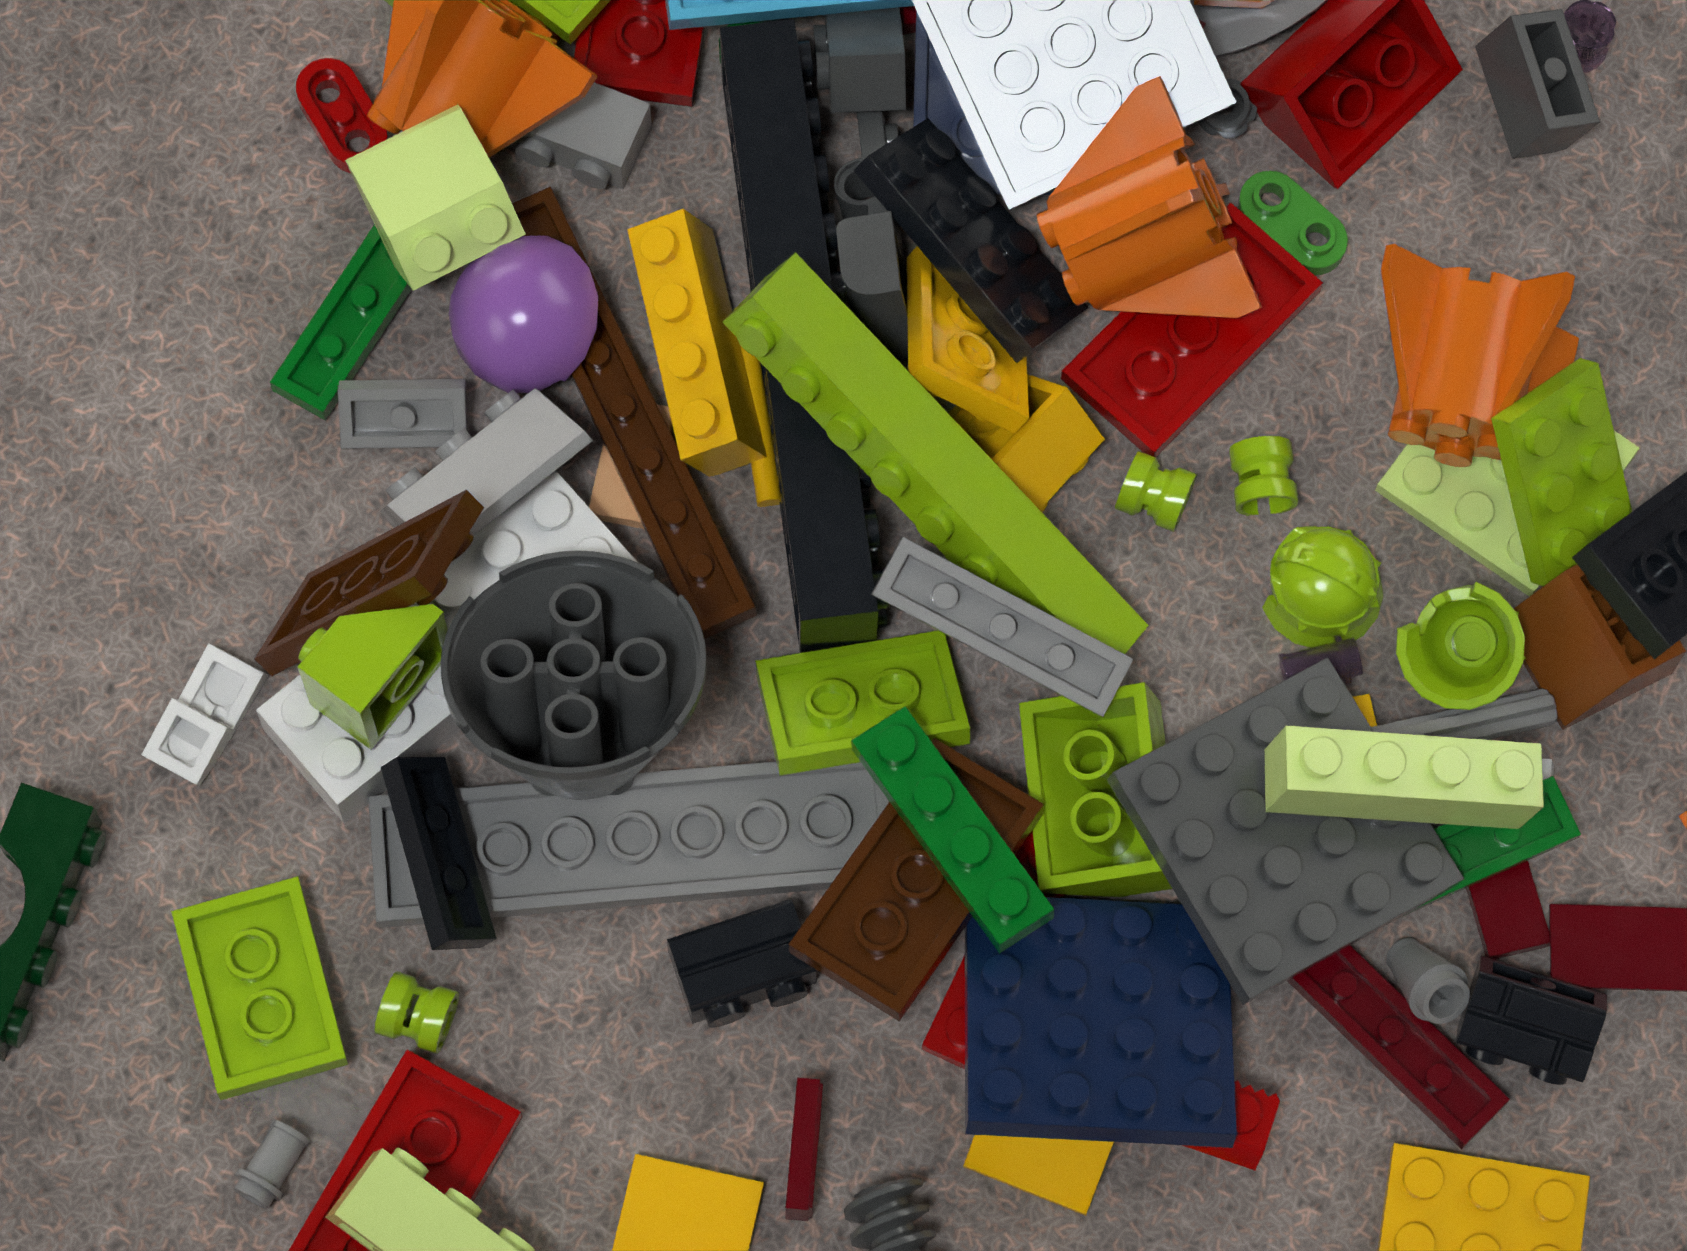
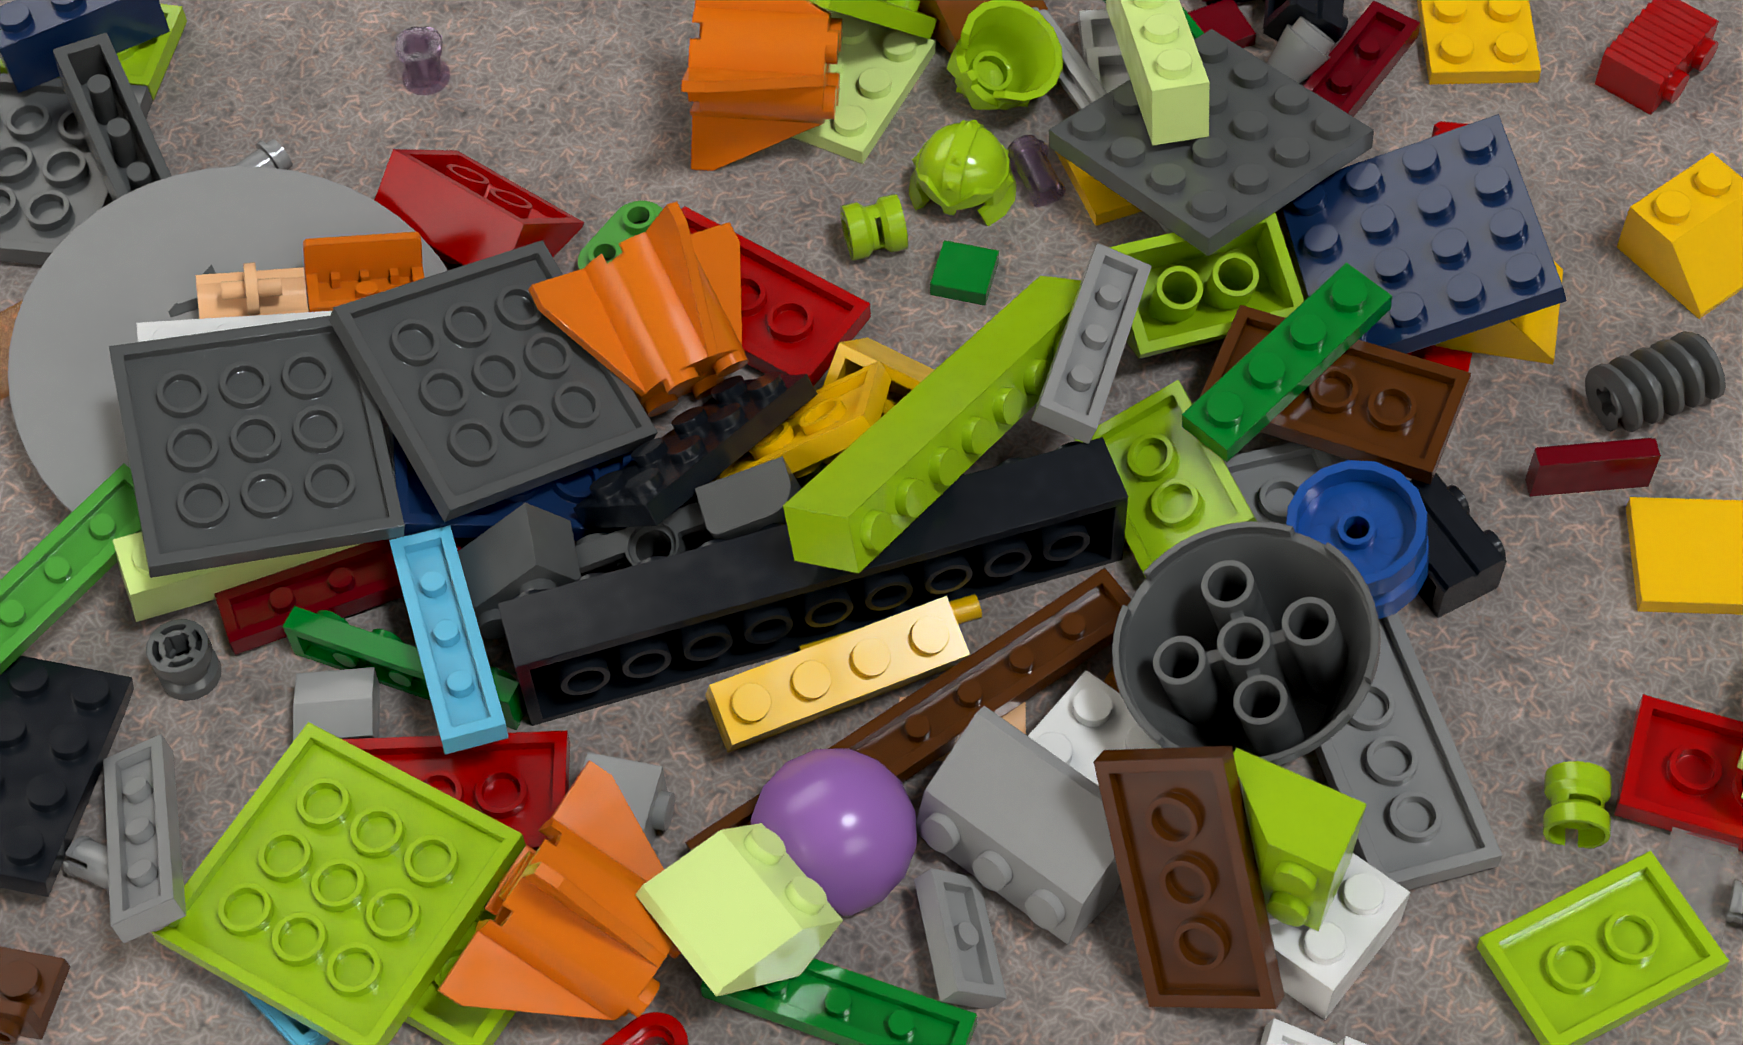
camera: 95 degrees left, 15 degrees down
(438, 853) = (1438, 790): black plate -> none
(721, 848) = (1373, 521): none -> blue wheel
(1157, 491) = (907, 294): lime wheel -> none
(1194, 566) = (964, 272): none -> green tile
(1537, 83) = (476, 78): dark grey brick -> none

